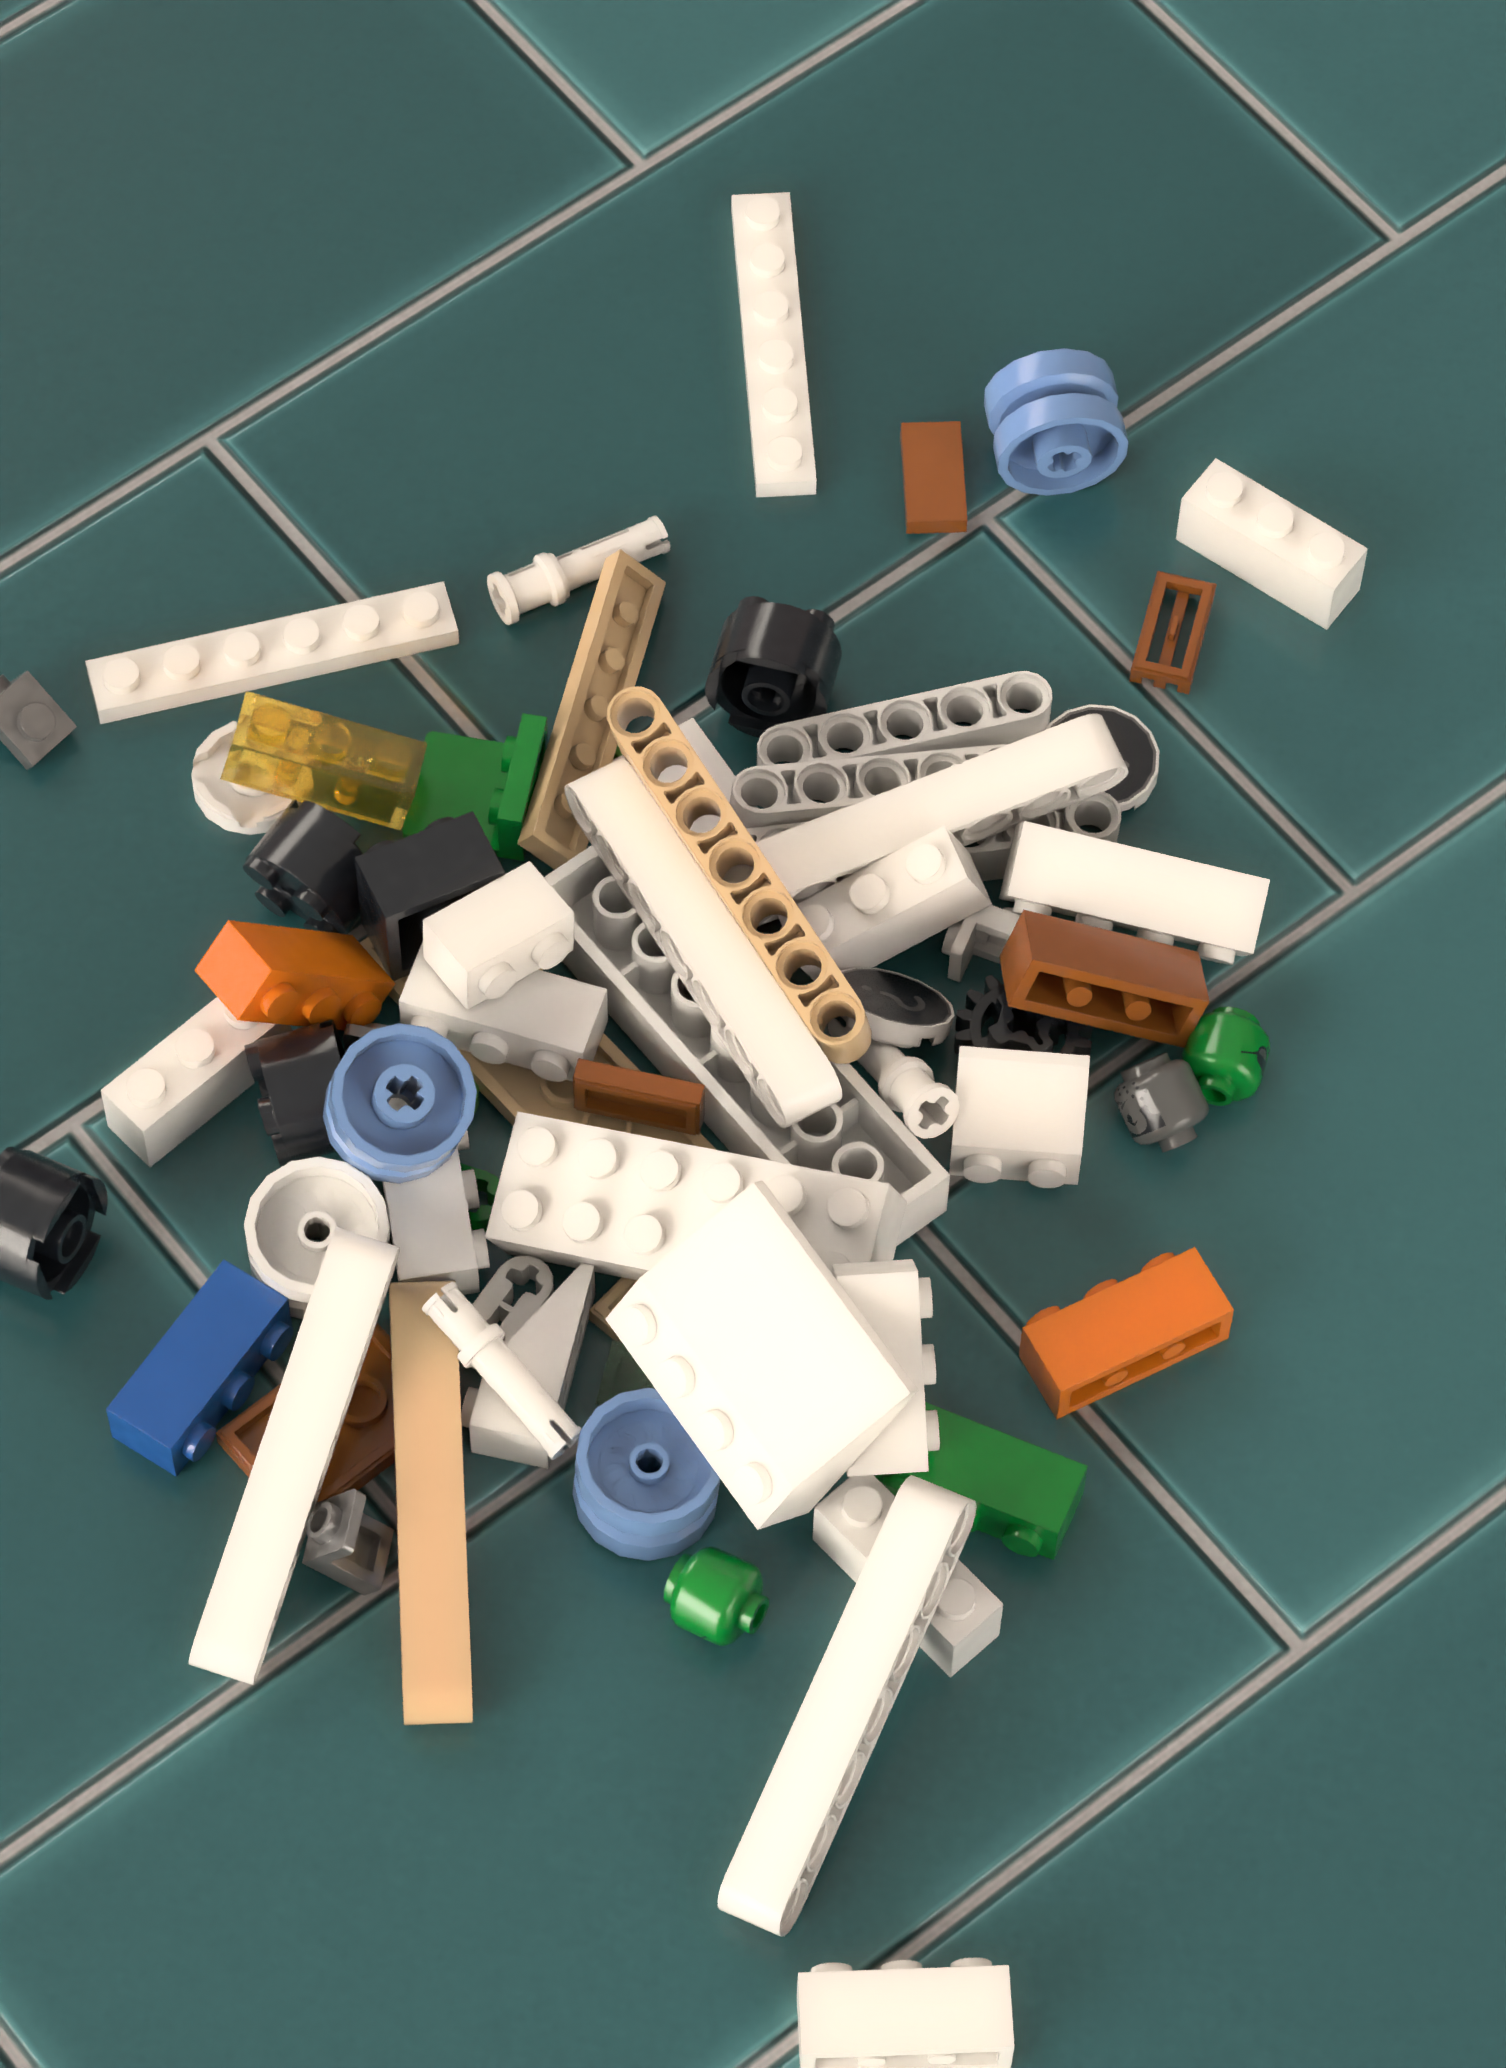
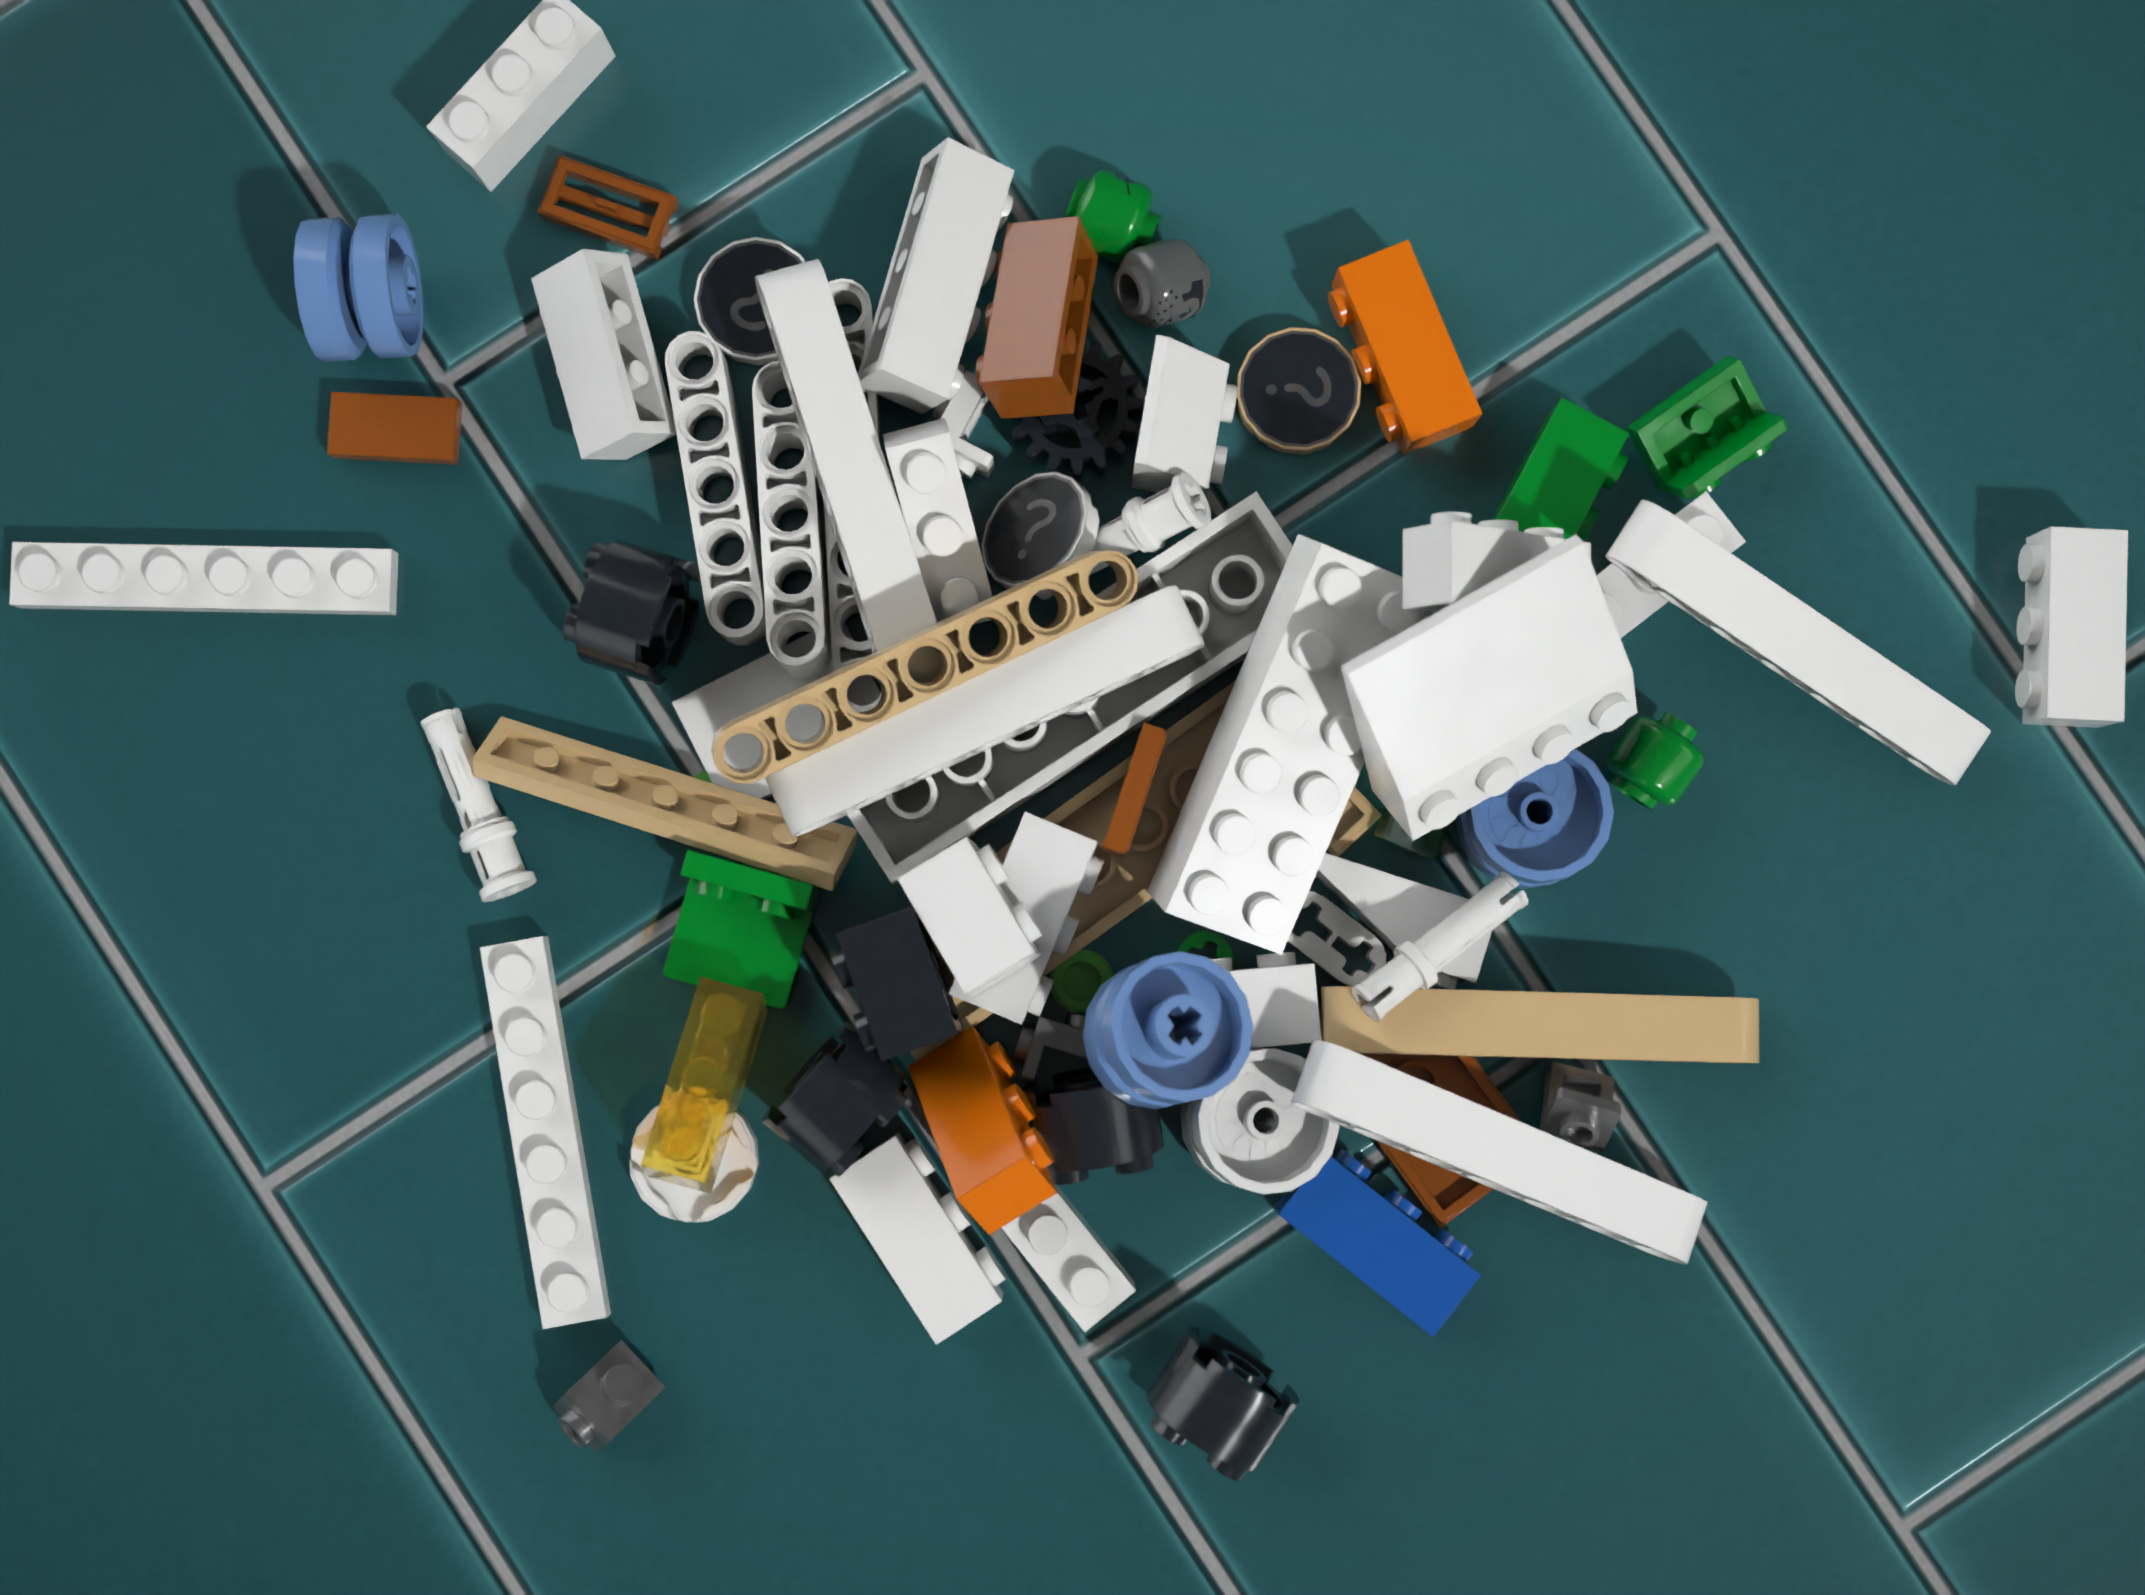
camera: 85 degrees left, 25 degrees up
(152, 978) = (920, 1236): none -> white brick
(1021, 626) = (604, 355): none -> white brick
(1069, 1242) = (1298, 390): none -> black tile
(1077, 1627) = (1705, 431): none -> green bracket

